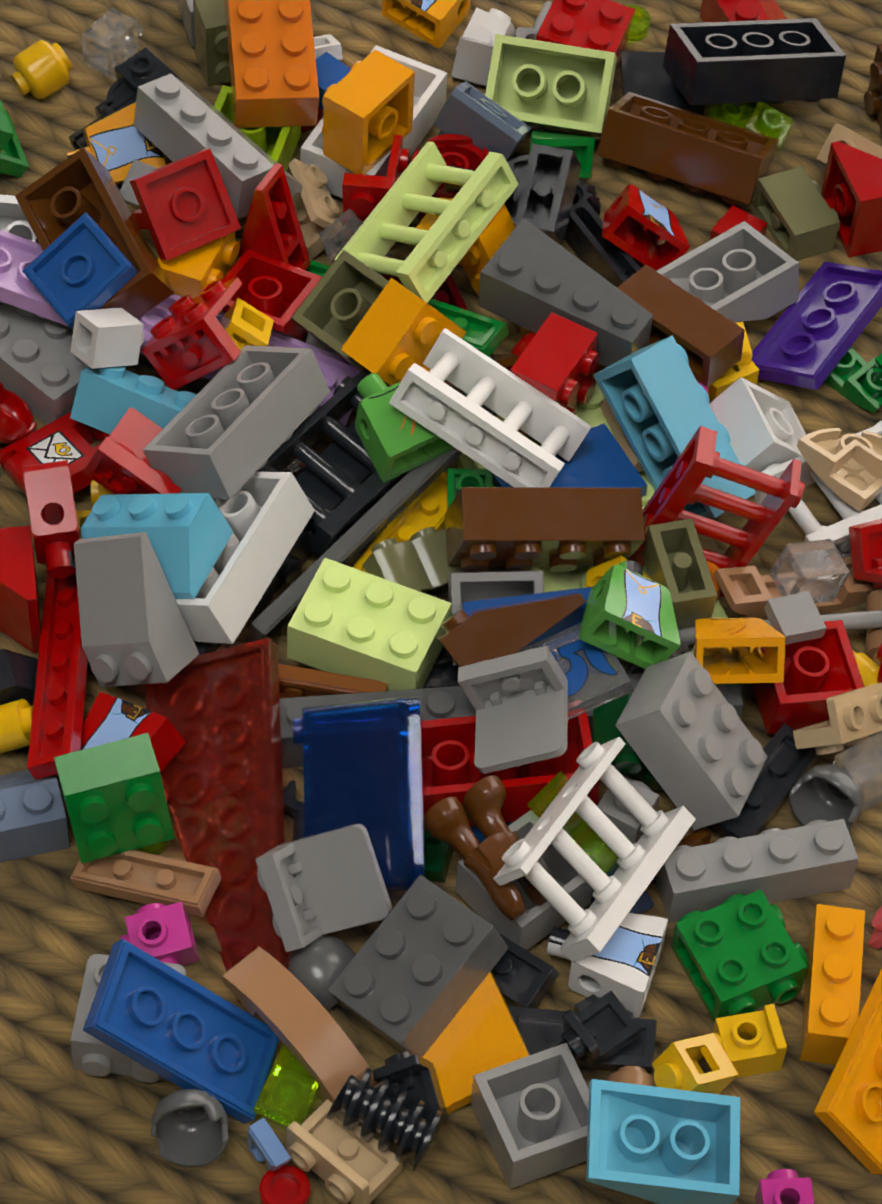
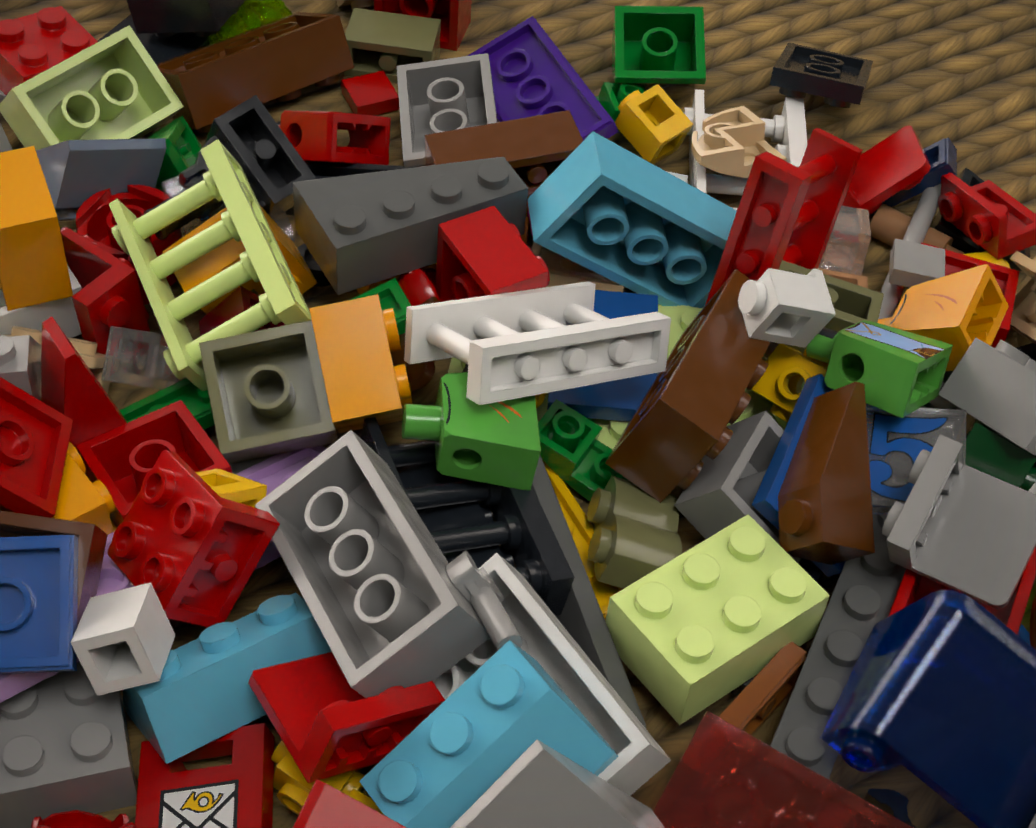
camera: 60 degrees left, 5 degrees down
(245, 477) = (485, 598): none -> light grey bar
(618, 525) = (786, 306): none -> white brick
(848, 390) = (652, 123): none -> yellow brick

